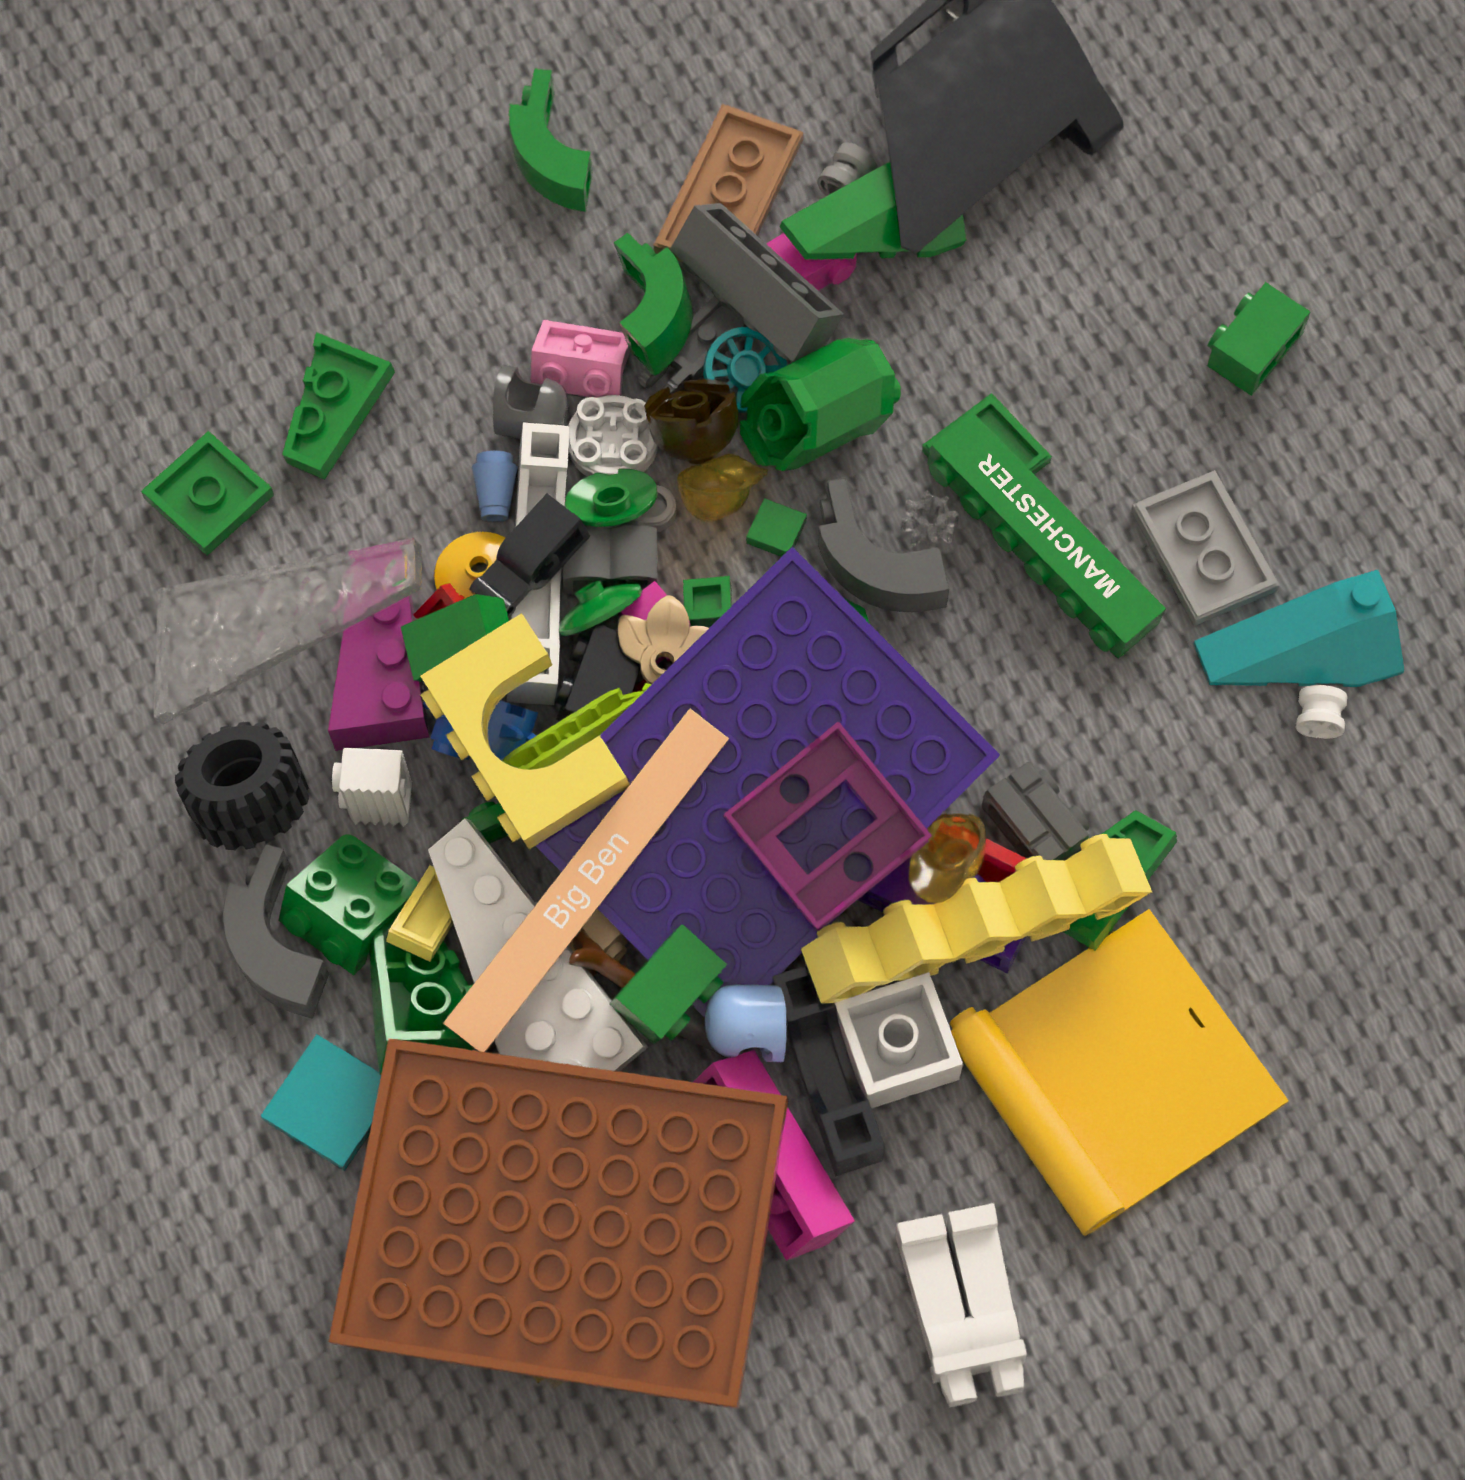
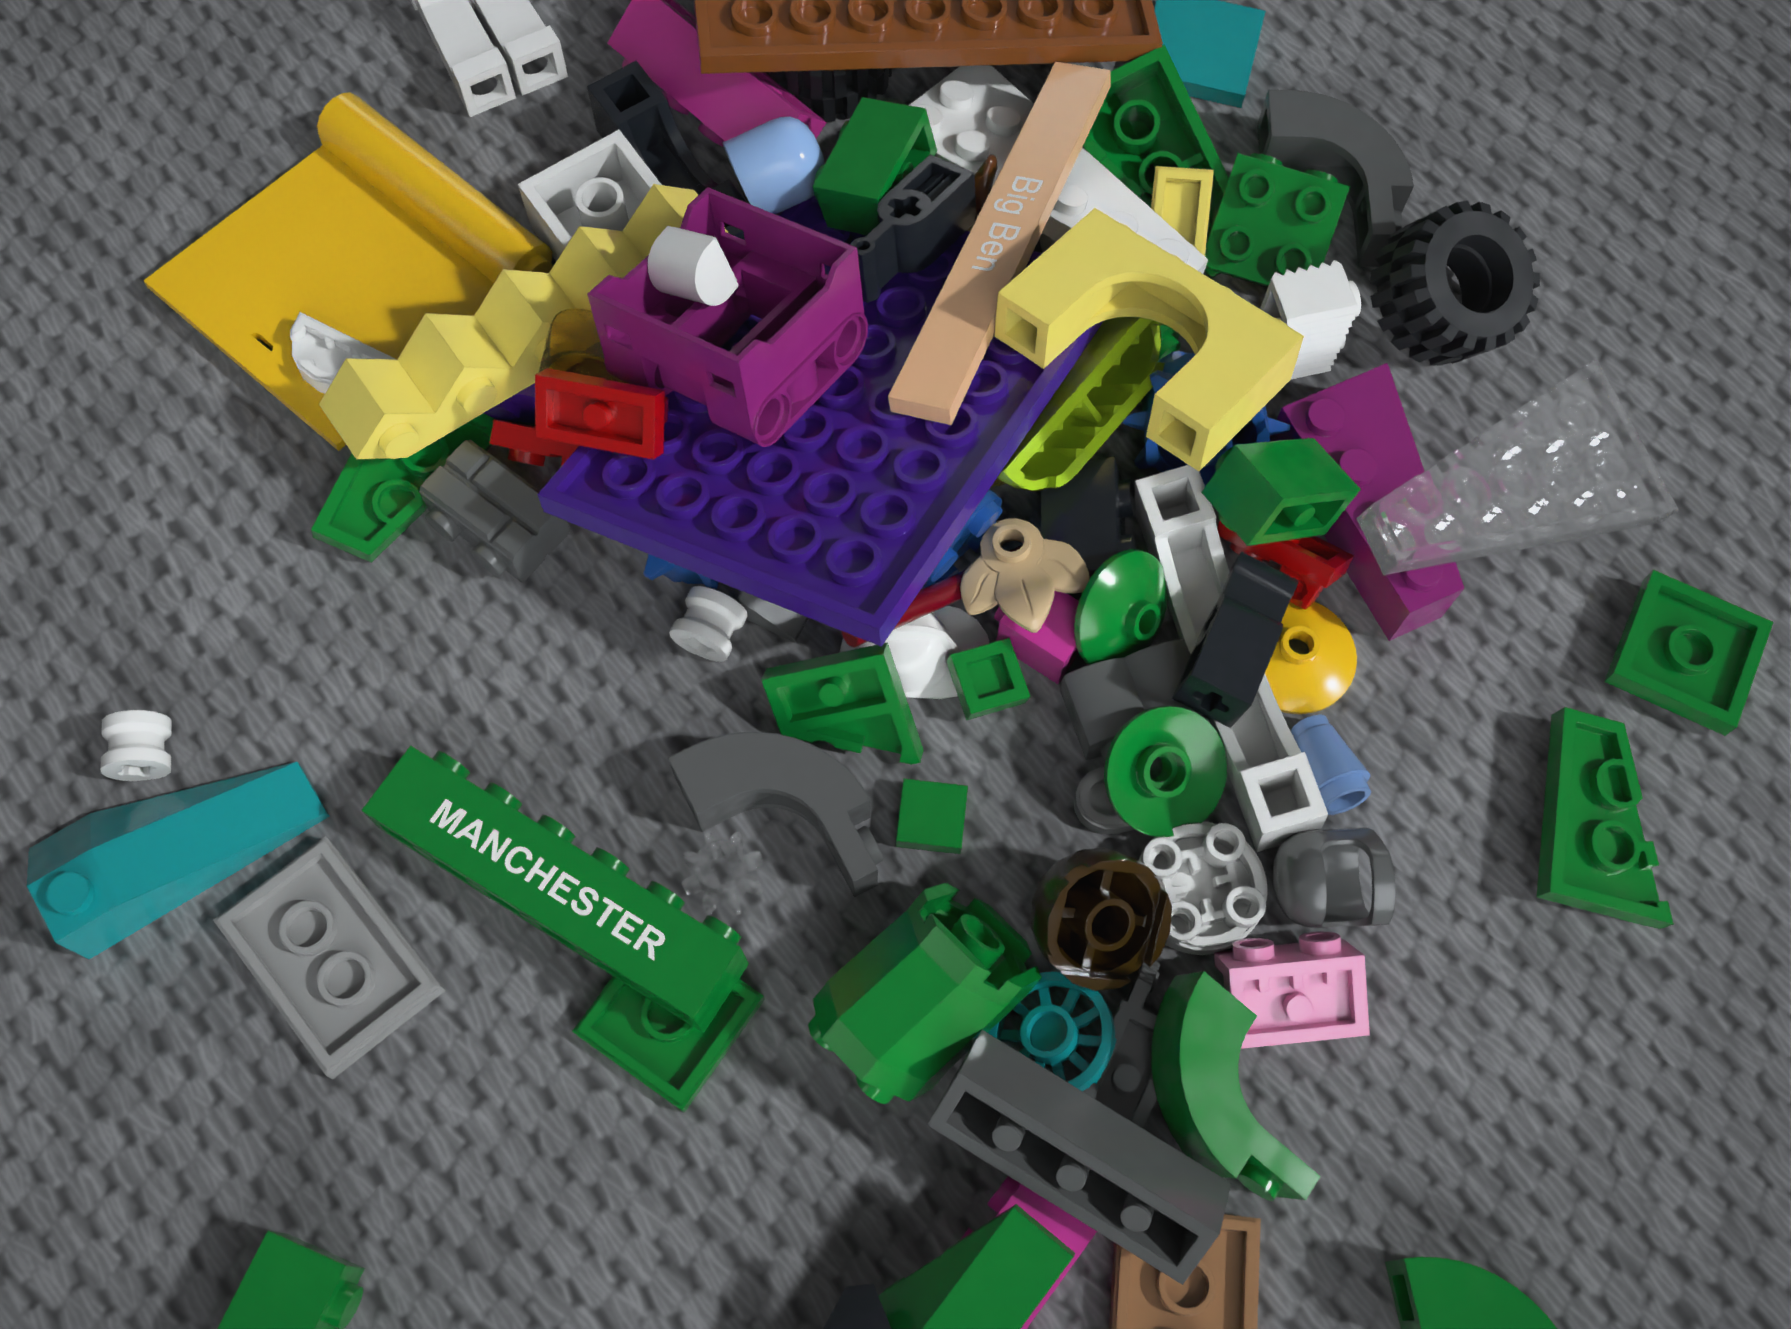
camera: 160 degrees right, 0 degrees up
(654, 929) = (916, 223): none -> black piece
(718, 486) = (1010, 865): clear yellow cap -> none
(847, 861) = (691, 267): none -> white brick
(924, 782) = (600, 413): none -> red hinge
(1138, 976) = (322, 350): none -> white tile

